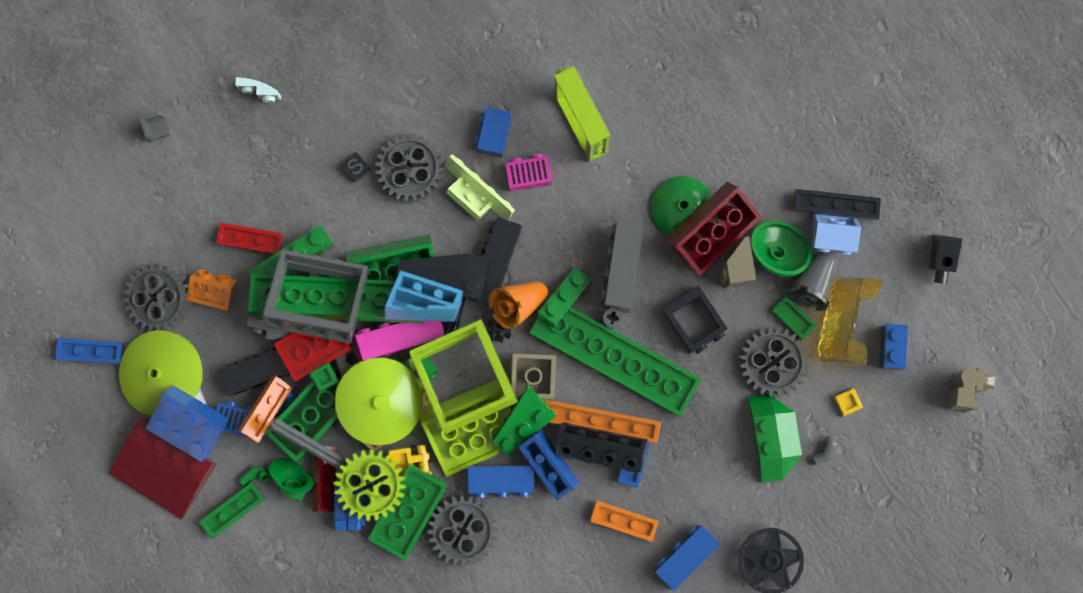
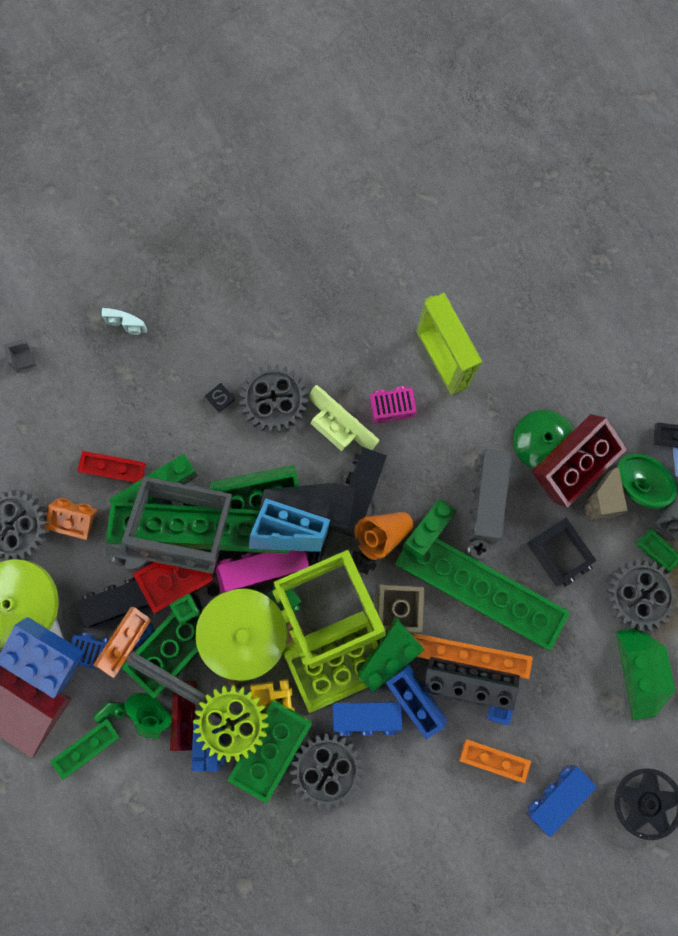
camera: 10 degrees left, 5 degrees down
(494, 132) = (358, 364): blue brick -> none

